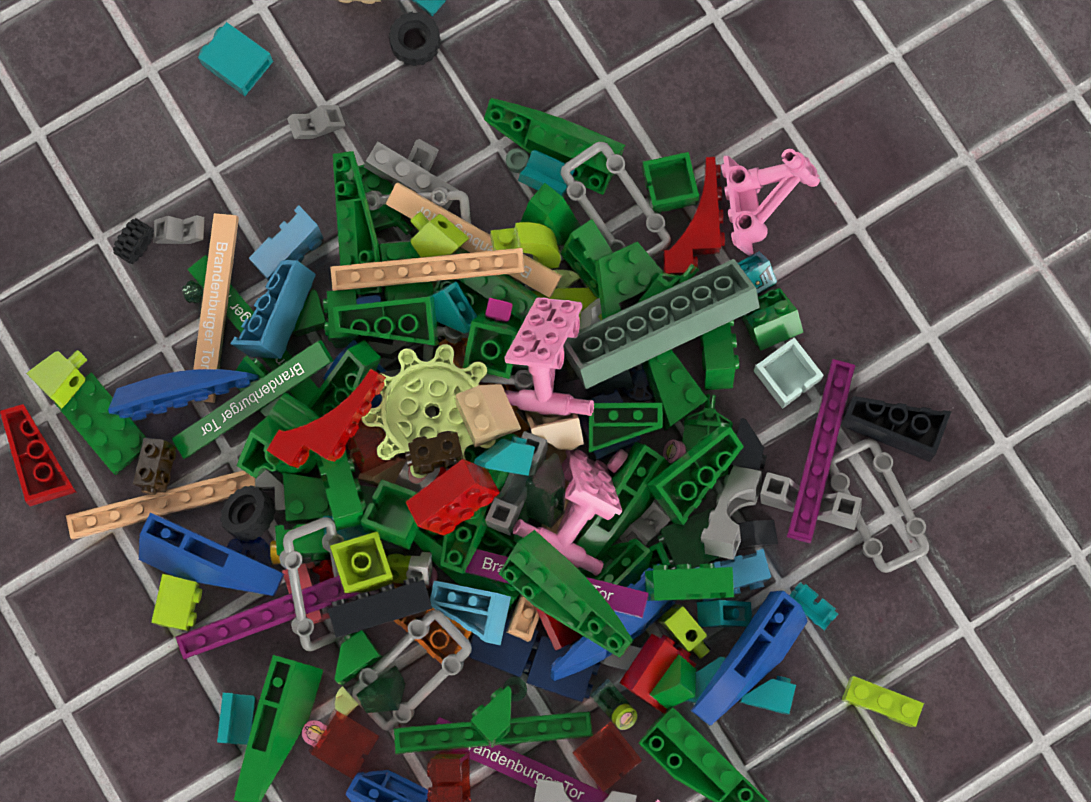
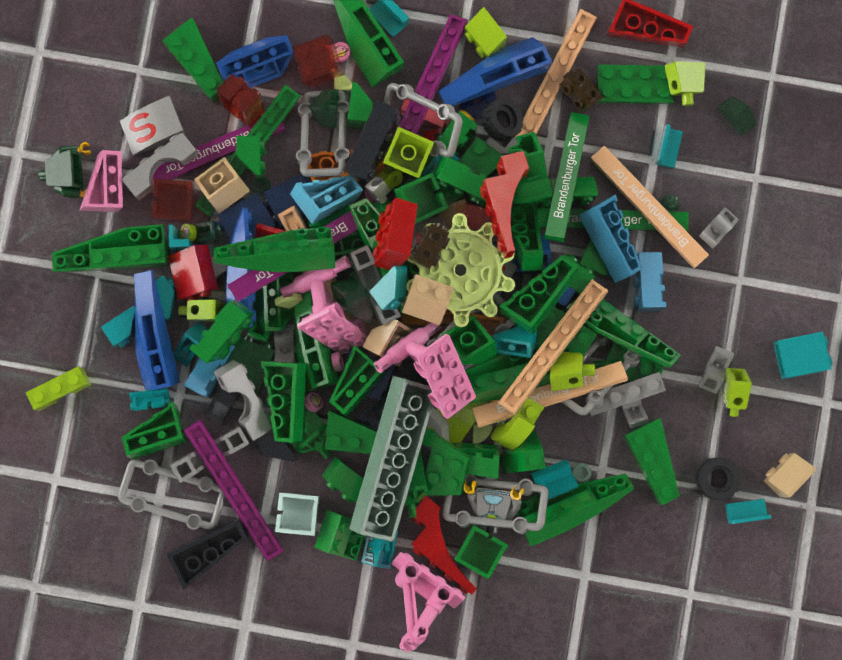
camera: 125 degrees right, 5 degrees up
(51, 304) = (738, 115): none -> clear green slope
(133, 241) = (734, 193): black tyre -> none
(139, 340) = (668, 147): none -> teal panel
(174, 390) = (616, 139): blue wedge -> none
(319, 87) = (736, 390): none -> lime torso
(448, 106) = (653, 458): none -> green wedge
(498, 310) = (488, 366): dark pink slope -> none
(549, 723) = (221, 185): none -> tan slope
(595, 551) = (288, 302): none -> yellowish green tile
(616, 208) = (493, 503): none -> torso
(643, 709) = (175, 243): none -> teal panel
(676, 684) = (175, 276): green slope -> none
(836, 568) = (156, 434): none -> green wedge

